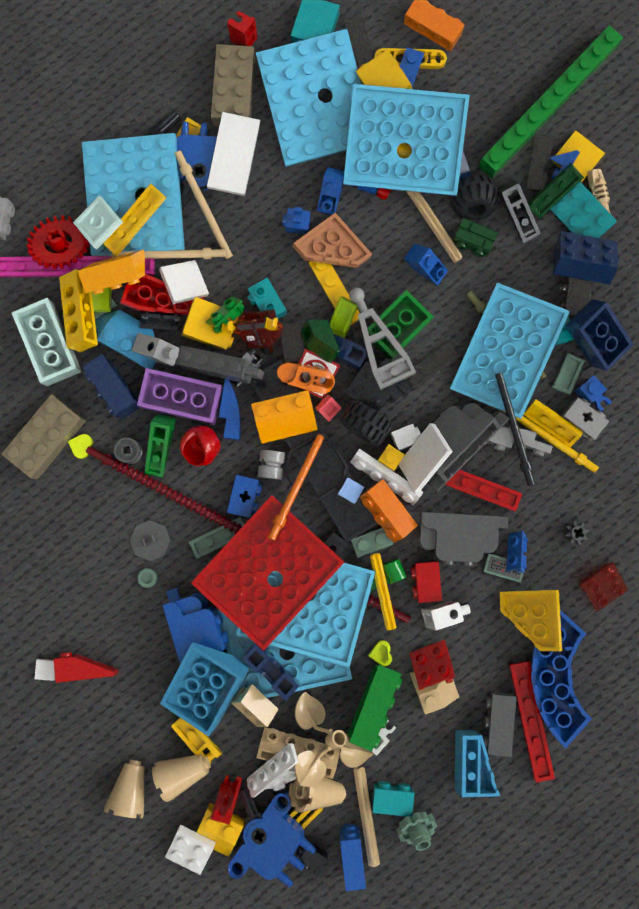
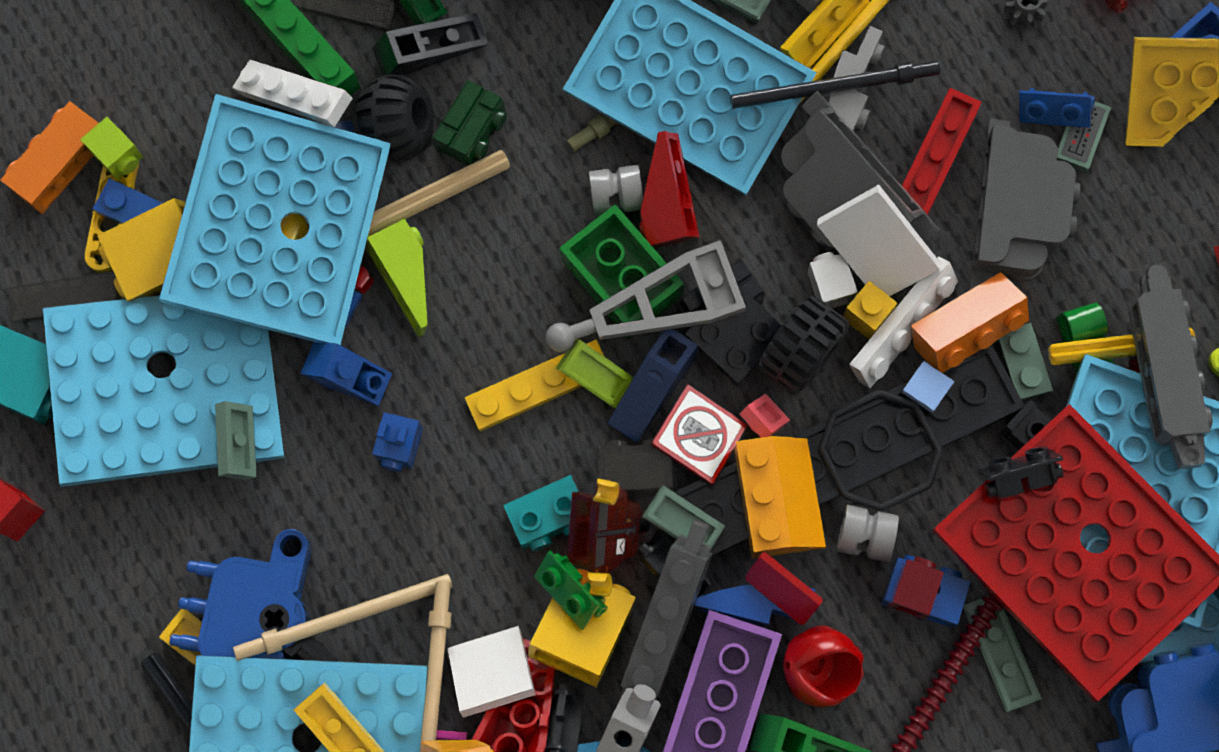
camera: 80 degrees left, 10 degrees down
(233, 81) = (112, 539): dark tan brick -> none
(233, 154) = (253, 545): white tile -> none
(235, 422) = (783, 589): none -> red slope
(241, 488) = (916, 587): none -> dark red brick
(268, 364) = (676, 515): none -> sand green tile
(279, 520) = (985, 513): orange bar -> none
(287, 137) = (235, 440): none -> sand green plate
(290, 374) = (698, 471): orange piece -> none
(308, 545) = (1036, 467): none -> black hinge
(320, 339) = (638, 412): dark green slope -> none
(332, 244) = (452, 378): nougat plate -> none
(369, 614) = (1169, 368): none -> dark grey hinge
(391, 212) = (399, 259): none -> lime slope
(426, 263) = (507, 214): blue slope -> none
(426, 581) = (1103, 268): red brick -> none
(438, 616) = (1169, 239): white torso -> none
(440, 51) = (112, 148): none -> lime brick
(441, 345) = (667, 199): none -> red slope
(444, 318) = (616, 188): none -> light grey wheel
(480, 140) = (292, 93): none -> white plate

